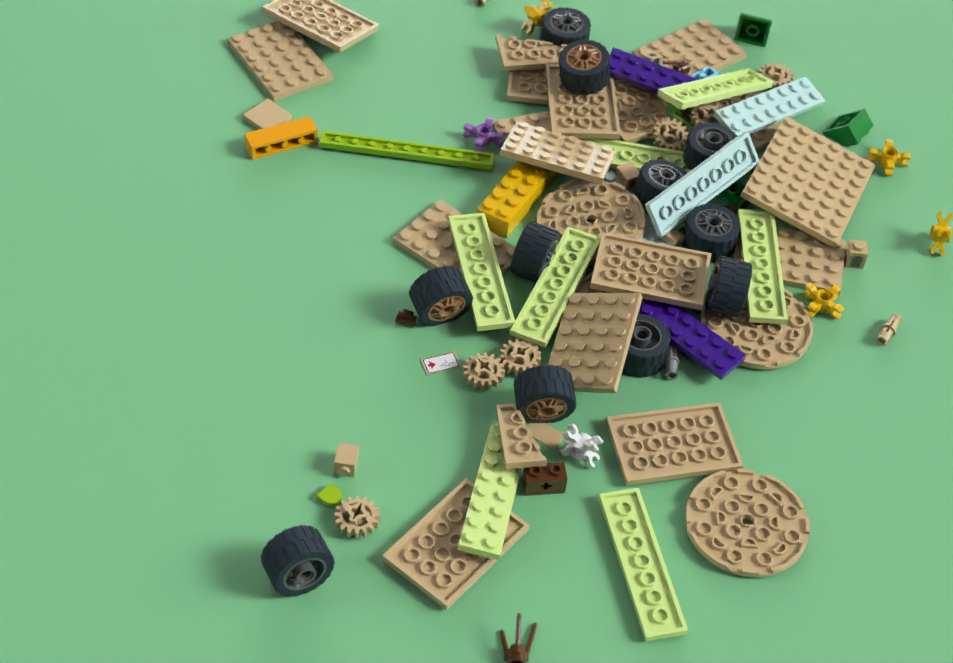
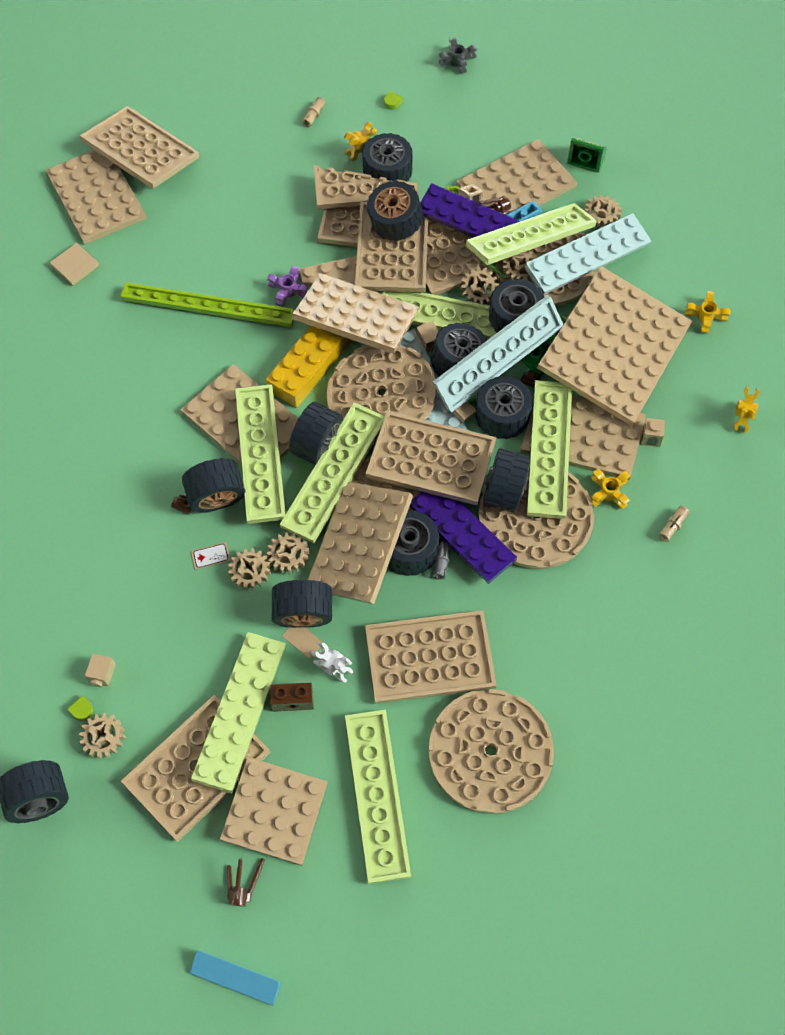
camera: 10 degrees right, 15 degrees up
(281, 137) = (83, 290): light orange brick -> none
(517, 440) = (267, 657): tan wing -> none
(542, 578) = (274, 811): none -> tan plate
(849, 127) = (671, 275): green slope -> none

